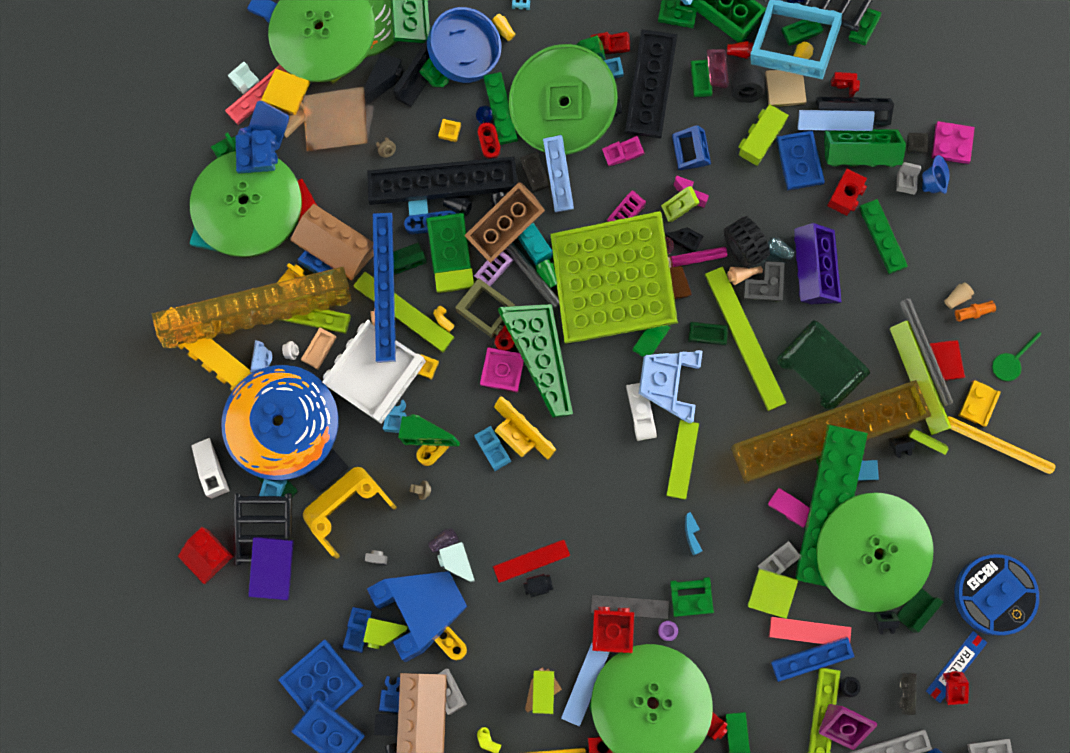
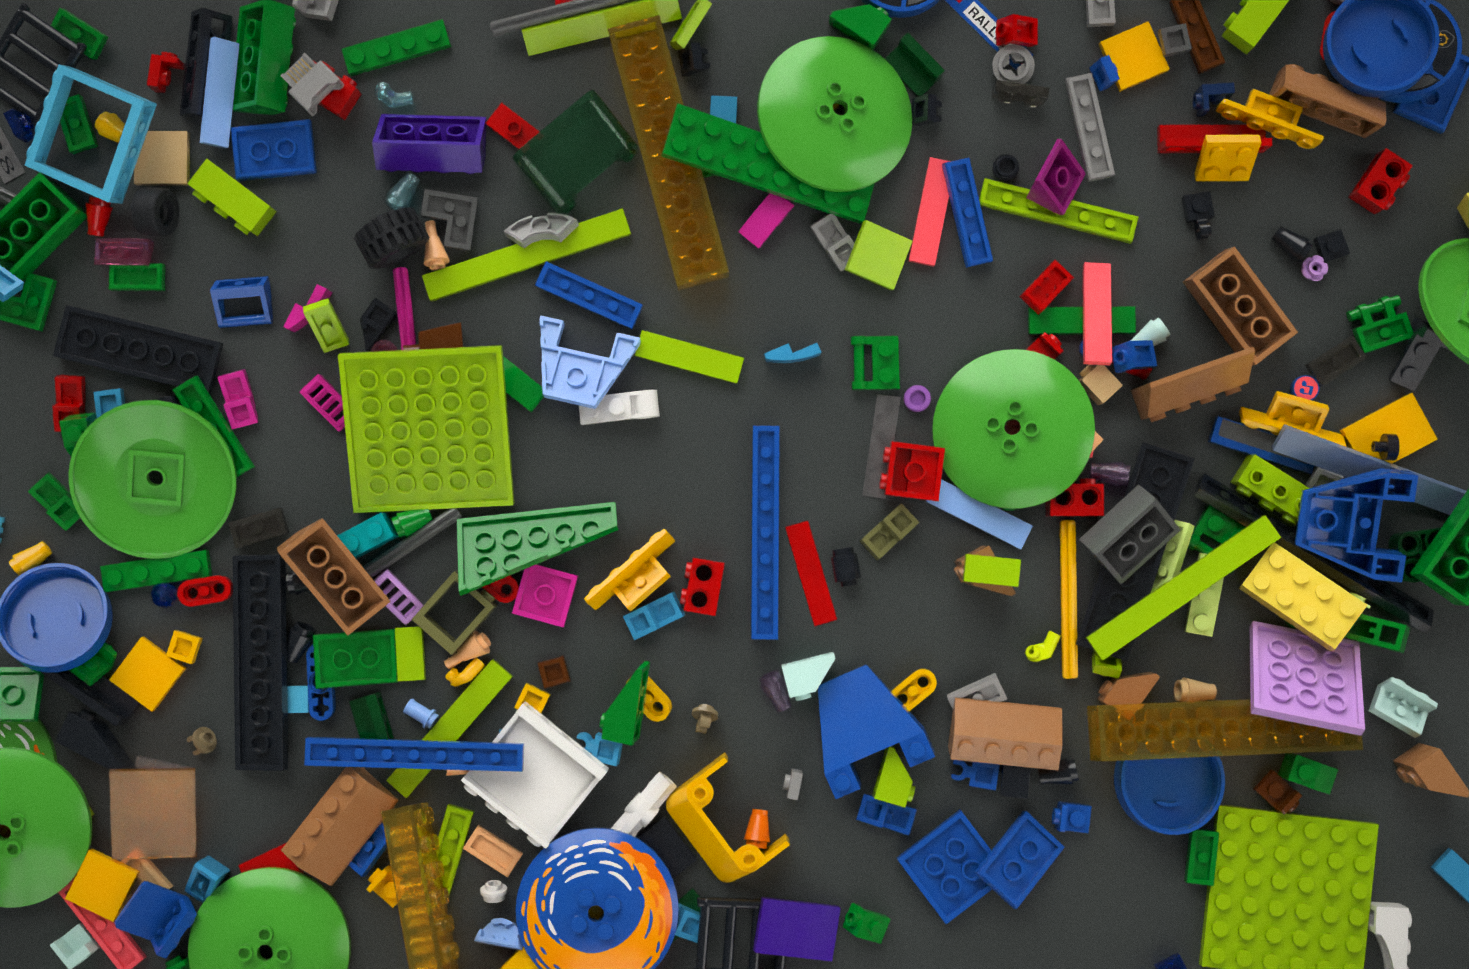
camera: 90 degrees left, 10 degrees up
(256, 152) = (195, 931): blue plate -> none
(276, 620) = (866, 923): none -> green bracket
(293, 157) = (205, 878): none -> dark azure slope
(342, 534) = (758, 829): none -> orange cone
(356, 452) = (645, 805): none -> white piece
(412, 291) = (421, 713): none -> light blue pin
(429, 108) = (147, 673): none -> yellow tile
(447, 380) = (554, 672): none -> reddish brown tile
(462, 324) = (473, 647): none -> light nougat cone
(515, 486) = (710, 587): none -> red brick
(546, 38) = (56, 500): none -> green slope
(558, 173) = (264, 494): light blue tile -> none
(559, 524) = (765, 532): none -> blue plate
(566, 616) = (889, 531): none -> olive slope
(621, 122) = (194, 396): none -> green tile
(708, 333) = (515, 305): dark green tile -> none
(720, 384) = (589, 295): none -> blue plate
(762, 724) = (1046, 287): none -> red plate
(766, 350) = (548, 227): none -> light grey tile
(837, 319) = (511, 126): none -> red plate
(846, 236) = (391, 98): none -> clear light blue arm
(850, 178) = (310, 82): none -> light grey piece
(938, 690) = (1017, 54): none -> light grey gear
(945, 568) = (862, 23): none -> green slope

